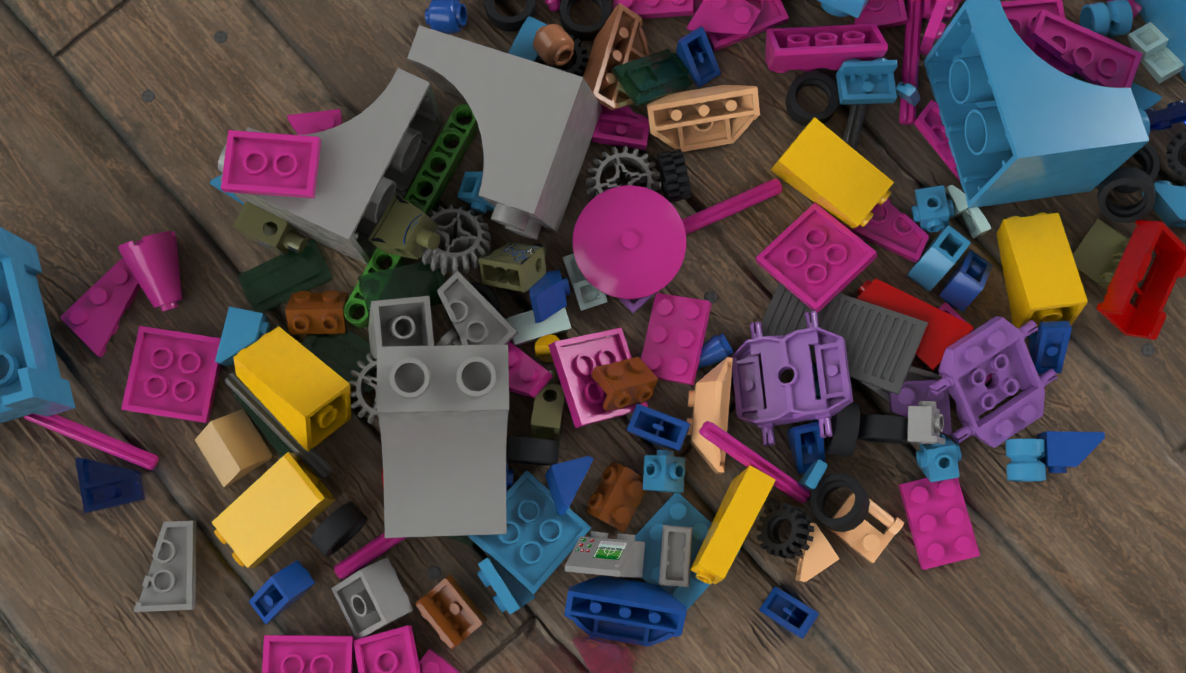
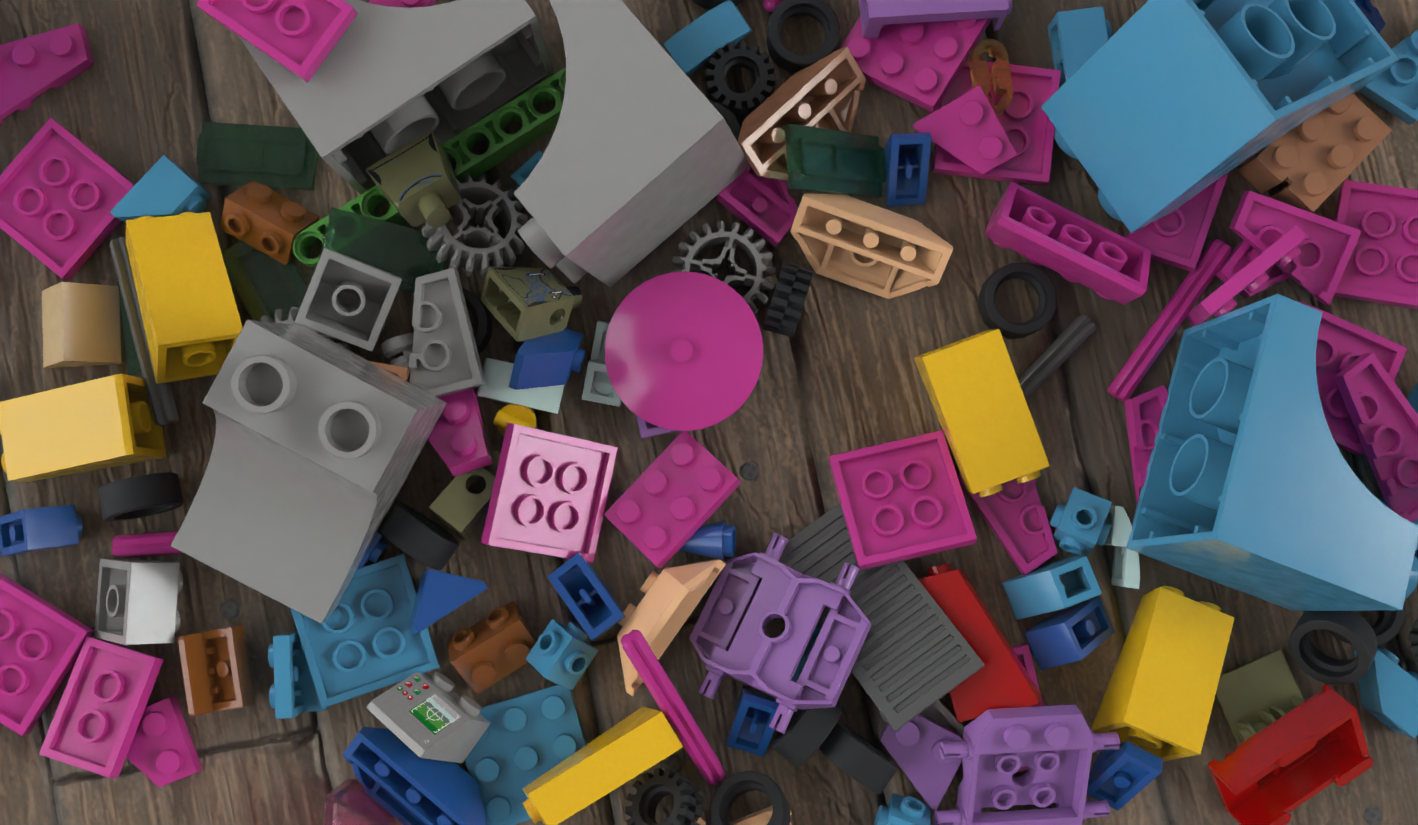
camera: 25 degrees right, 5 degrees up
(156, 268) = (106, 59): dark pink cone -> none
(268, 230) = (257, 91): olive torso -> none
(553, 45) = (734, 53): nougat head -> none
(625, 382) = (576, 519): dark orange bracket -> none
(675, 556) = (515, 762): light grey plate -> none
(732, 205) = (837, 375): dark pink axle -> none
(813, 474) = (739, 760): dark azure tile -> none
(867, 81) = (1095, 318): dark azure bracket -> none
(908, 93) = (1138, 361): dark azure tile -> none
(925, 423) = (907, 785): light grey brick -> none

